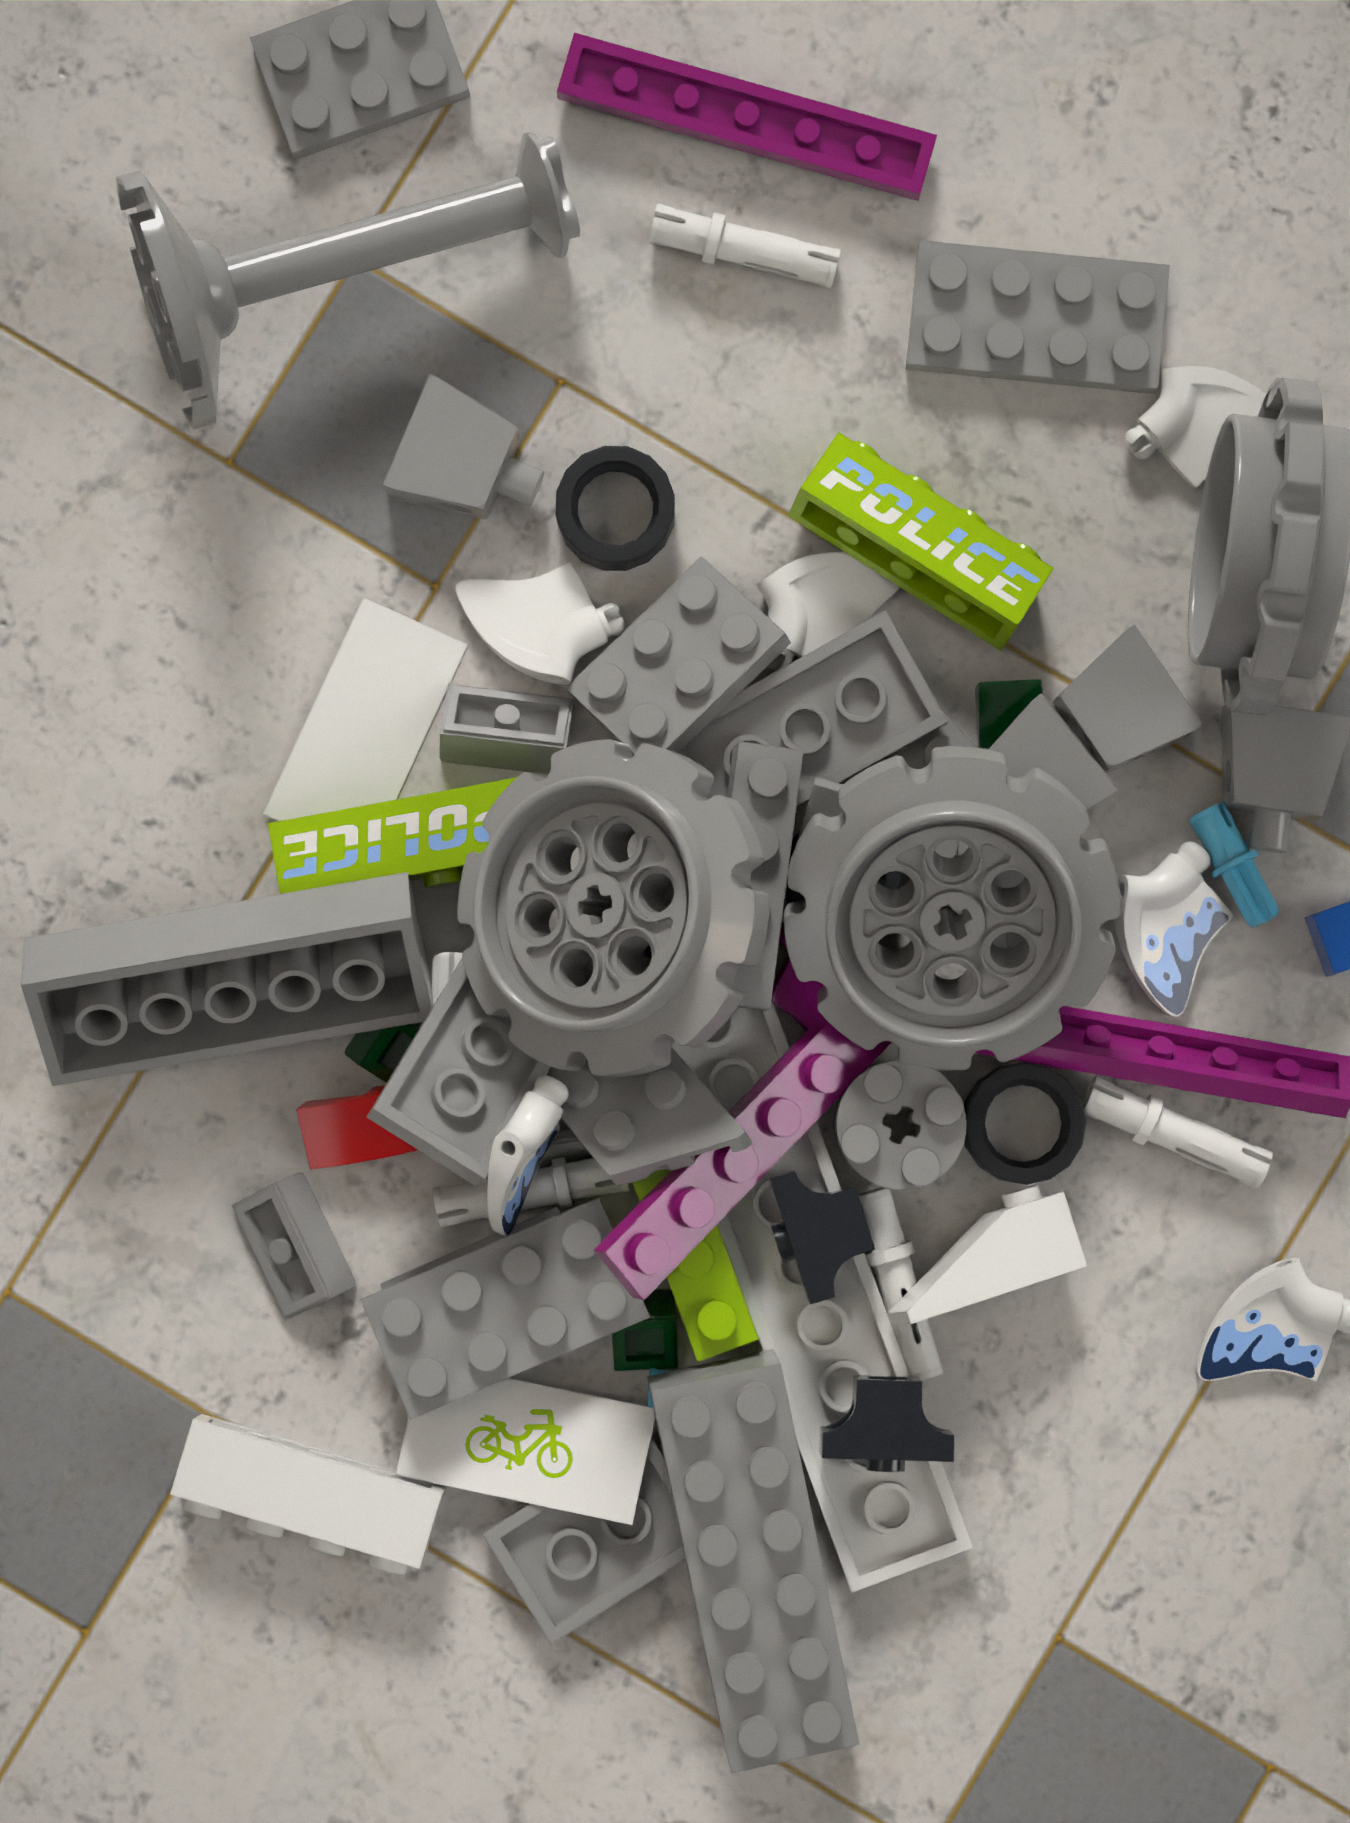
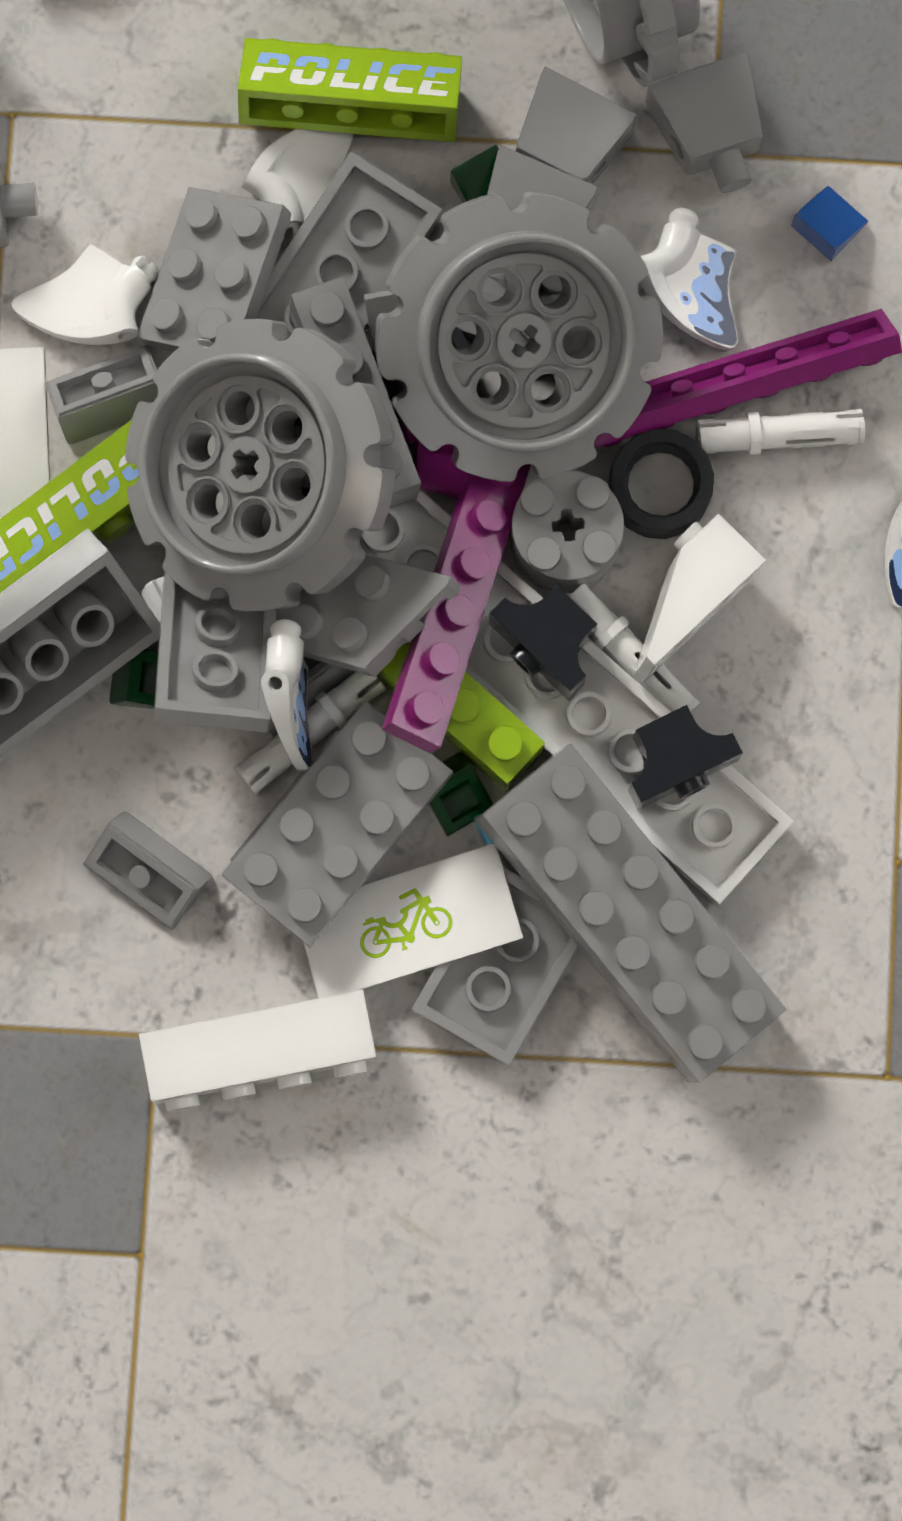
camera: 30 degrees left, 5 degrees down
(341, 1134) = (150, 753): red slope -> none
(600, 462) = (100, 143): black tyre -> none
(1234, 863) = (717, 209): medium azure axle -> none

